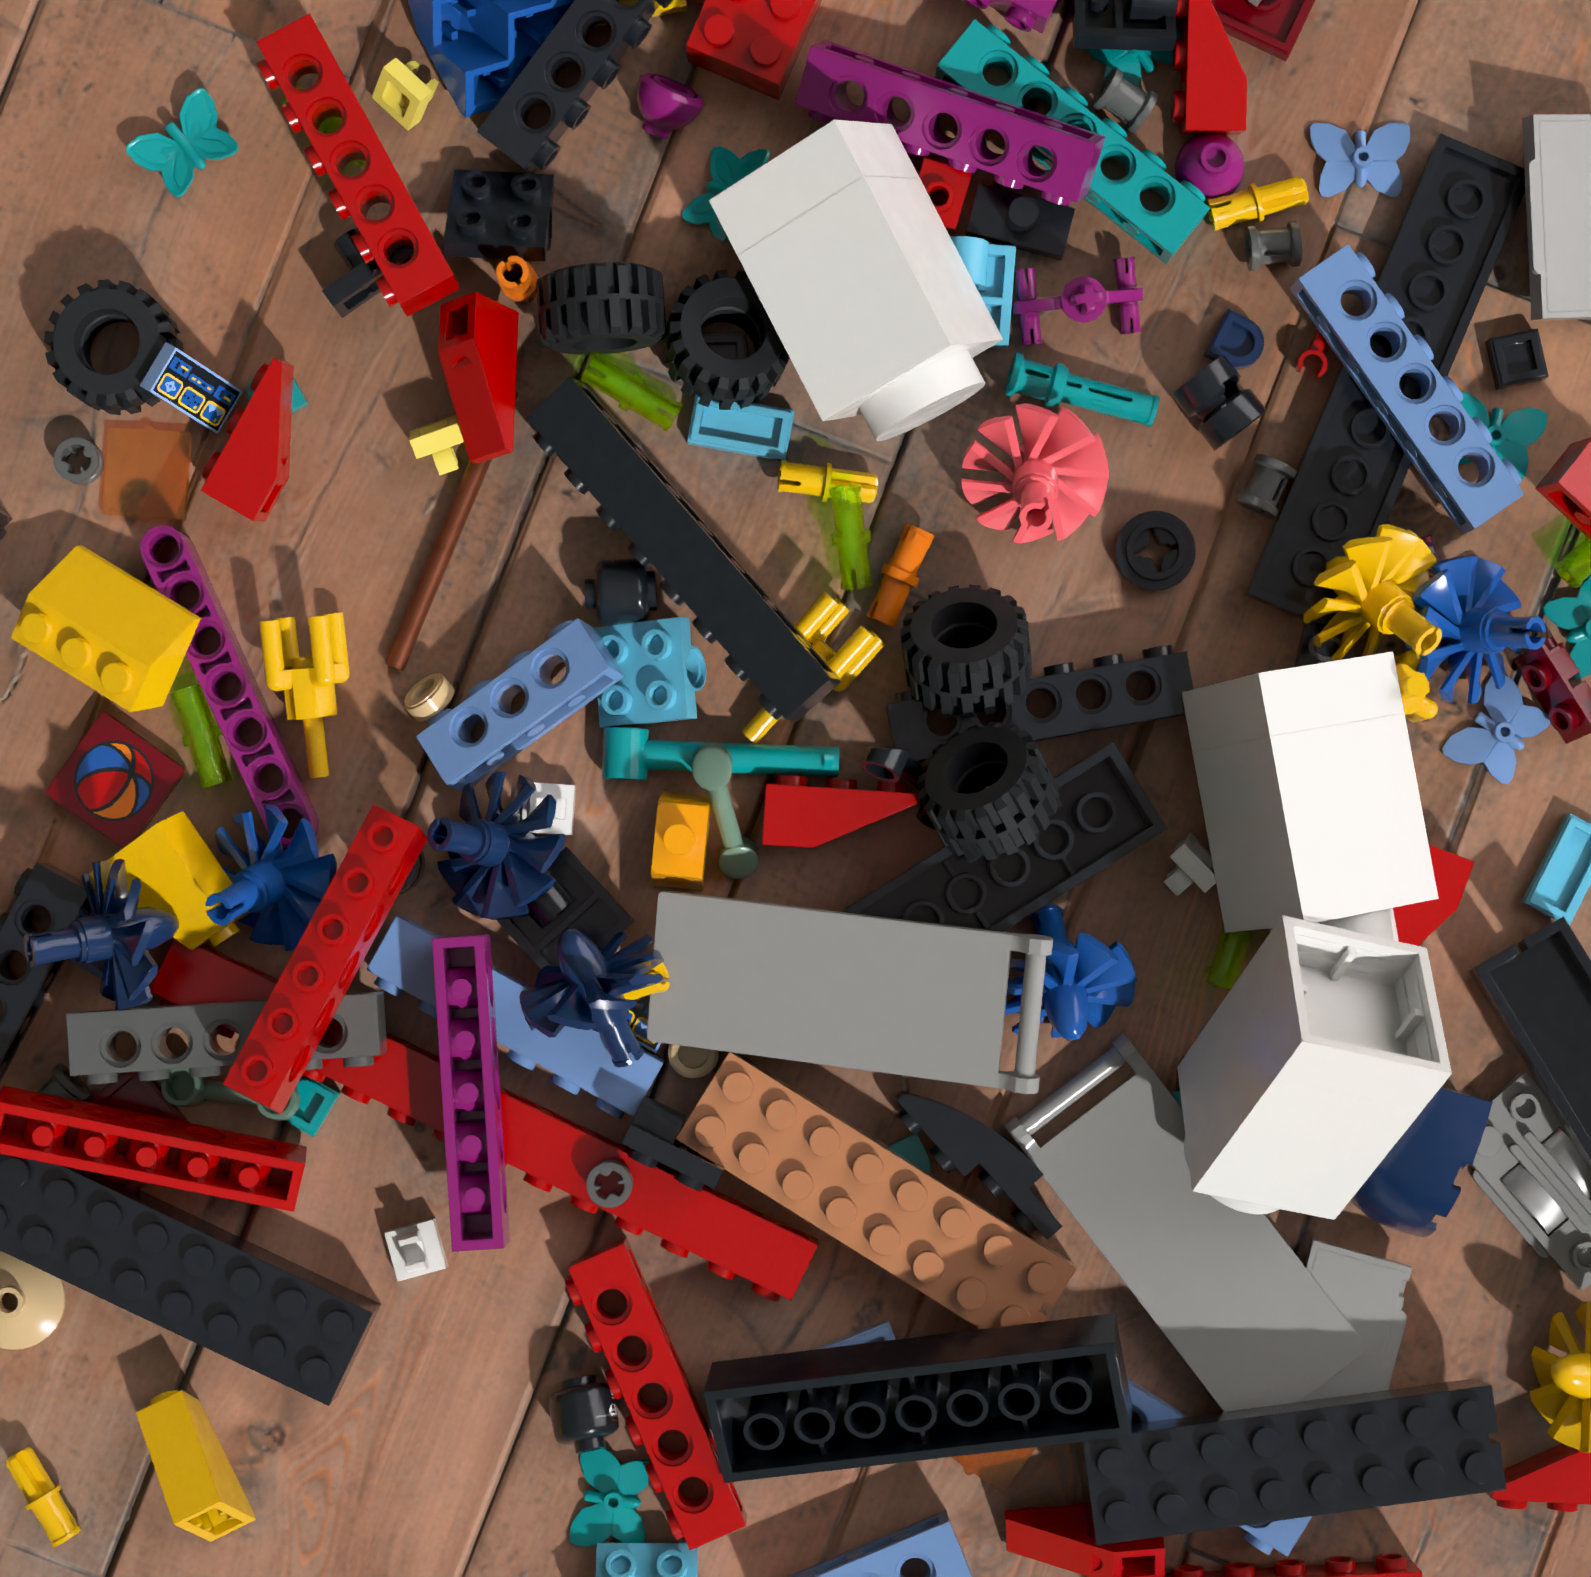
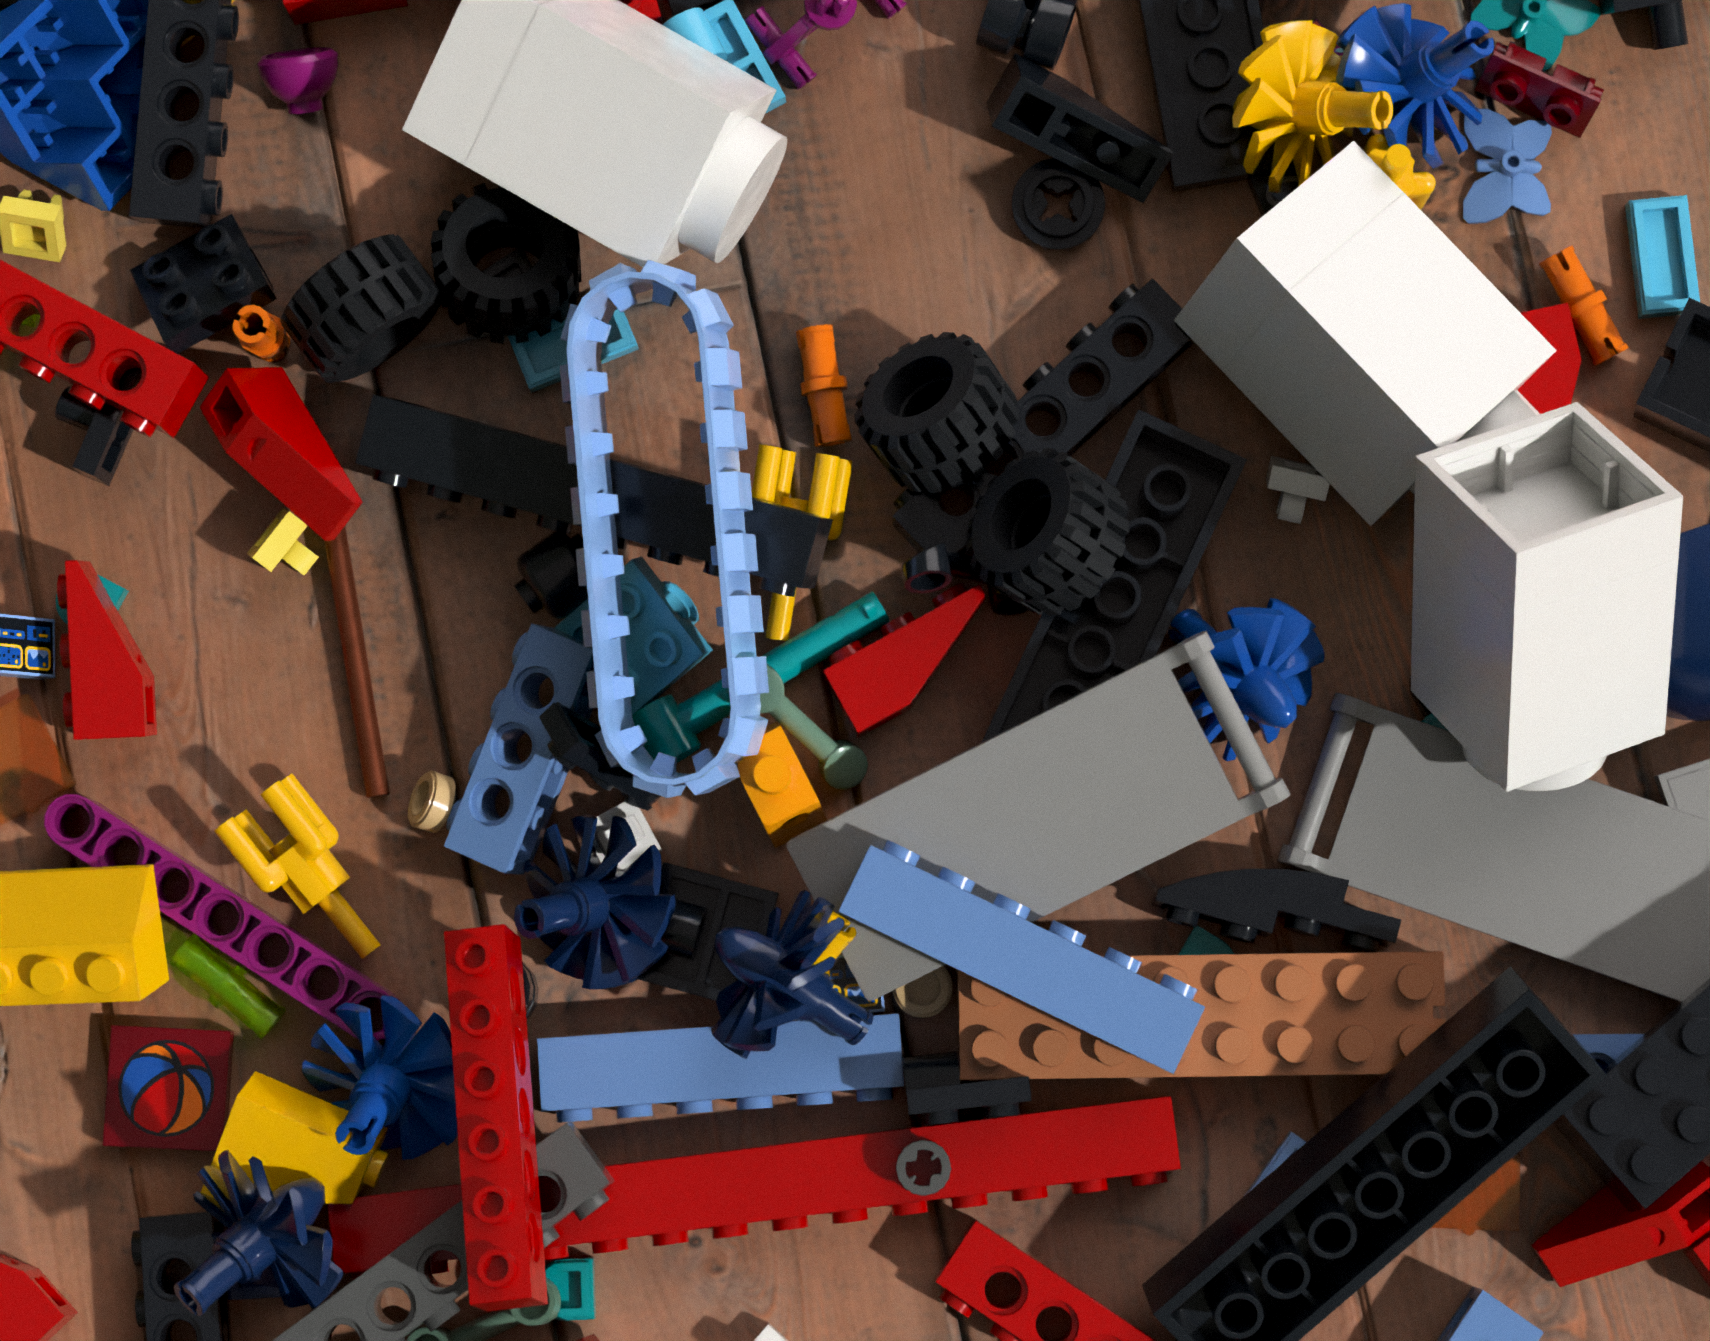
camera: 25 degrees left, 5 degrees down
(471, 1092) = (724, 1161): magenta brick -> none
(568, 746) = (575, 745): none -> black hinge
(631, 392) = (443, 375): clear neon green pin -> none
(674, 568) = (595, 511): none -> light blue piece
(725, 171) = (404, 150): teal piece -> none
(773, 1085) = (1023, 958): none -> medium blue brick
(819, 479) = (682, 347): yellow axle -> none
(850, 536) = (761, 388): clear neon green pin -> none
(1053, 474) = (910, 188): coral piece -> none
(1057, 385) = (858, 105): teal pin -> none
(1202, 504) = (1075, 128): none -> black slope
(1228, 958) = (1390, 553): clear neon green pin -> none
(1266, 485) = (1125, 73): dark grey bush -> none
(1487, 869) = (1585, 305): none -> orange pin

